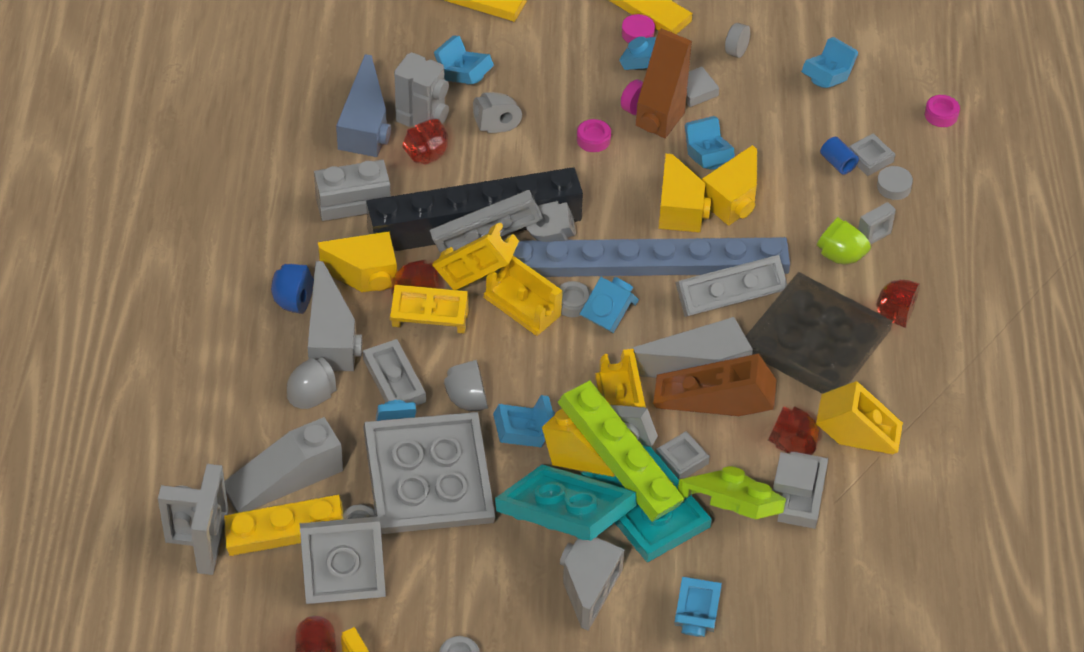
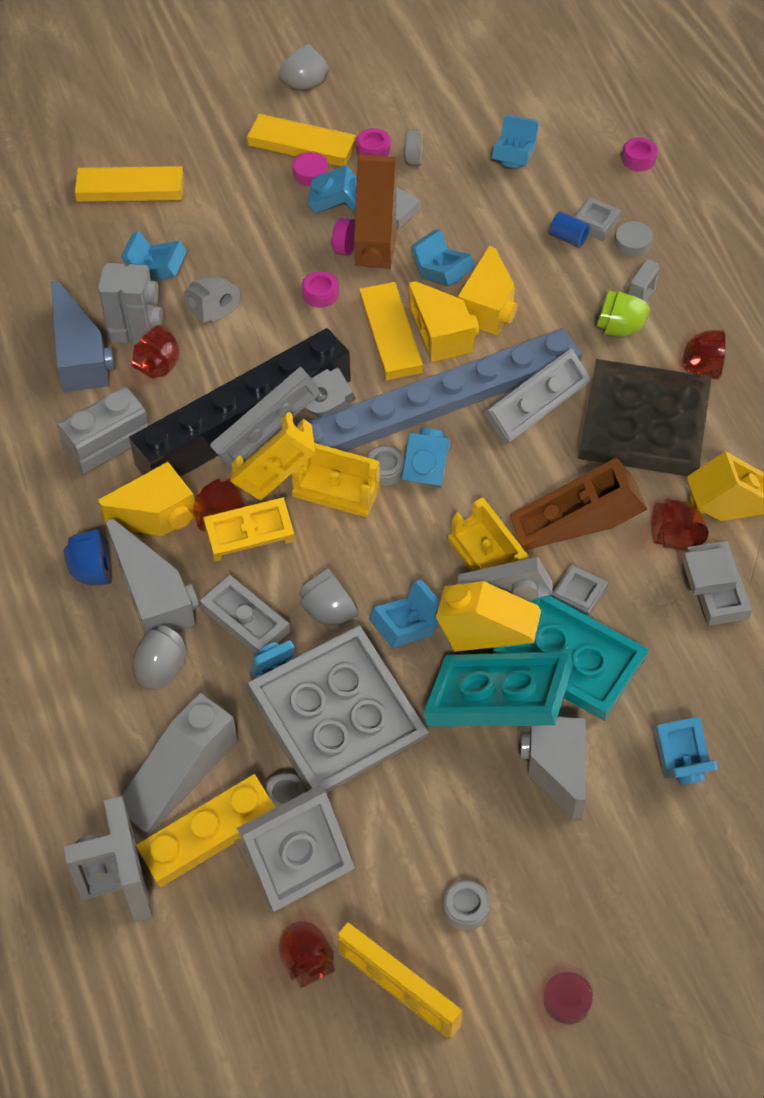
camera: 20 degrees left, 5 degrees up
(620, 450) = (531, 612): lime plate -> none
(635, 190) = (390, 331): none -> yellow tile
(692, 348) = (544, 471): light grey slope -> none
(705, 26) = (373, 142): none -> dark pink tile
(735, 492) = (660, 612): lime wing -> none

